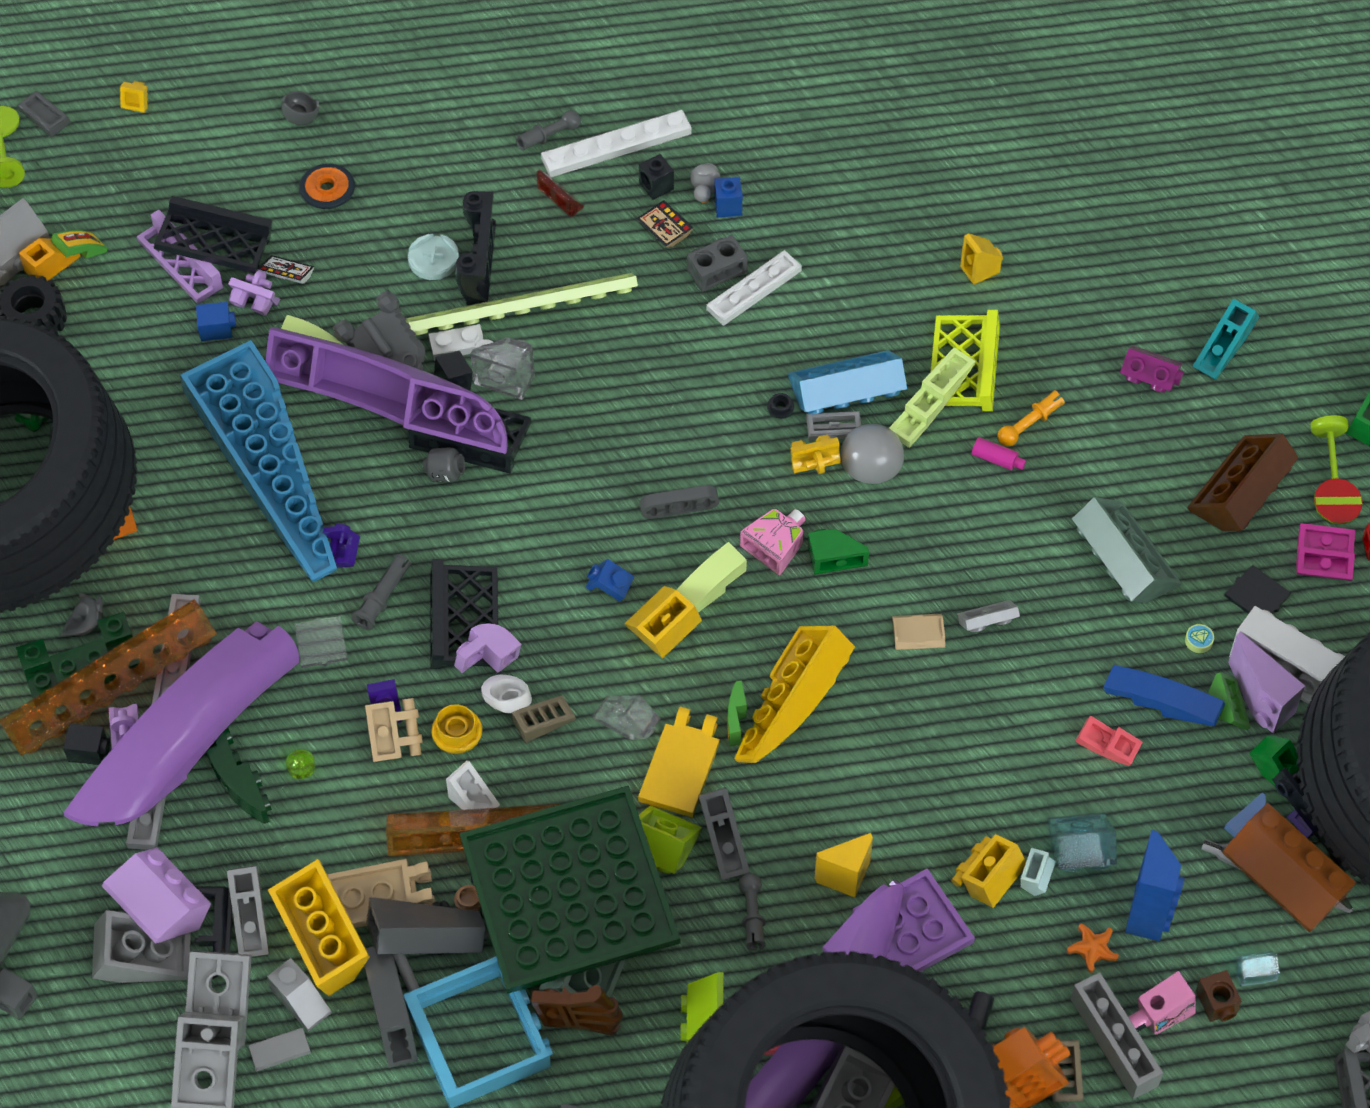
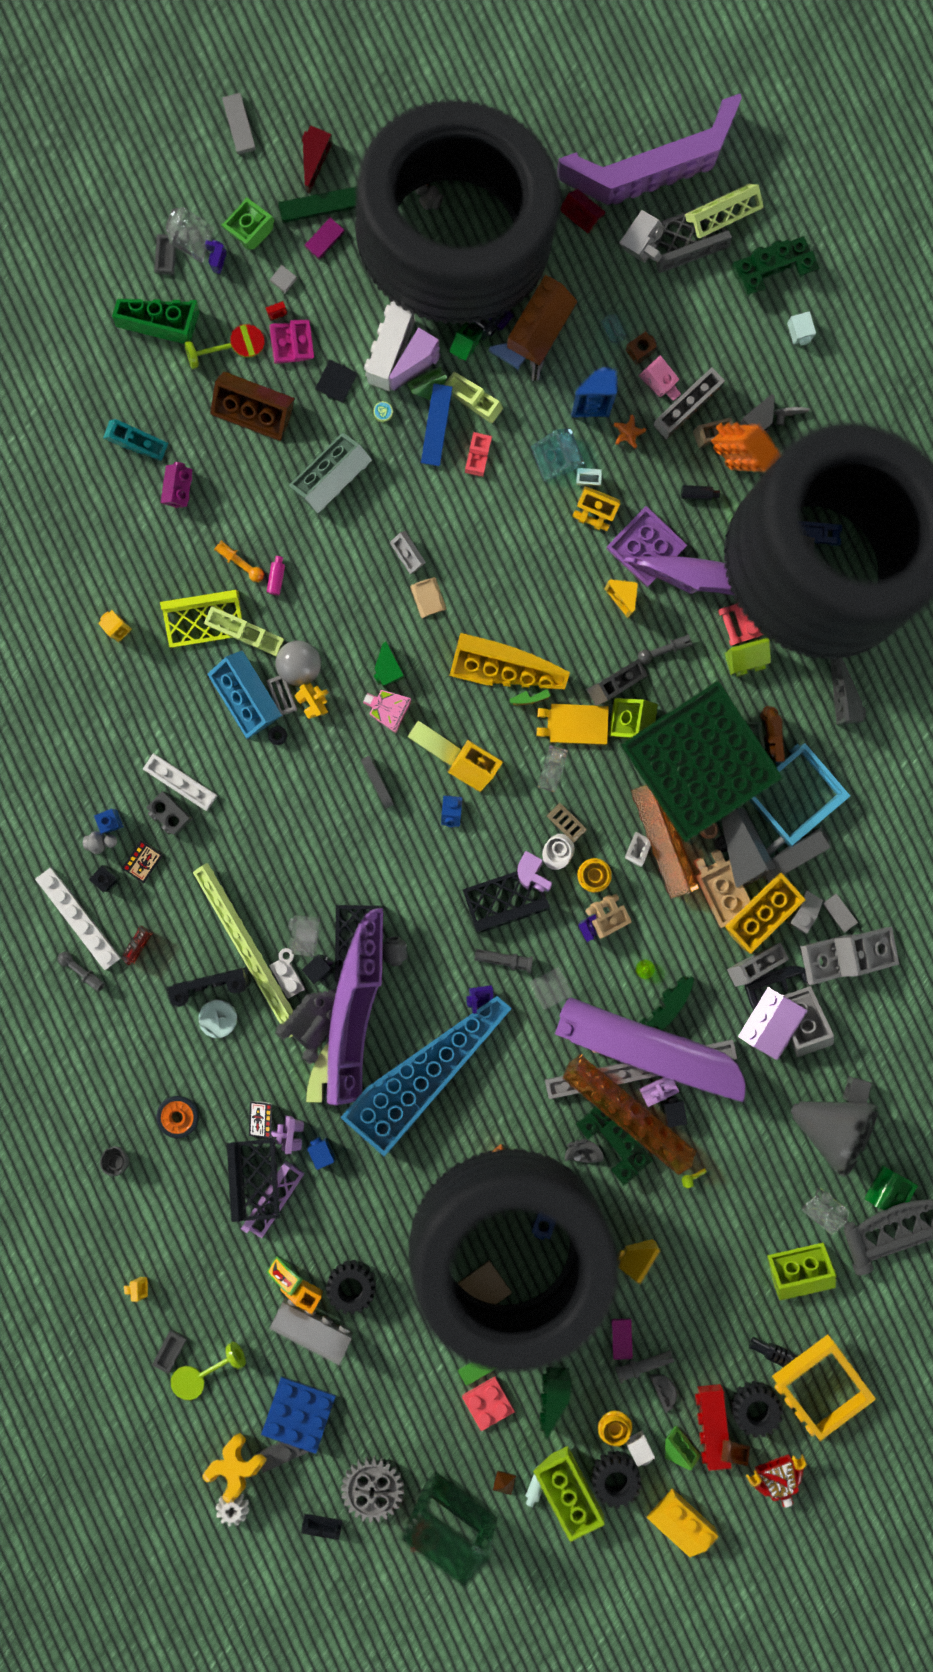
camera: 105 degrees left, 30 degrees up
(1193, 754) = (474, 397): none -> yellowish green slope

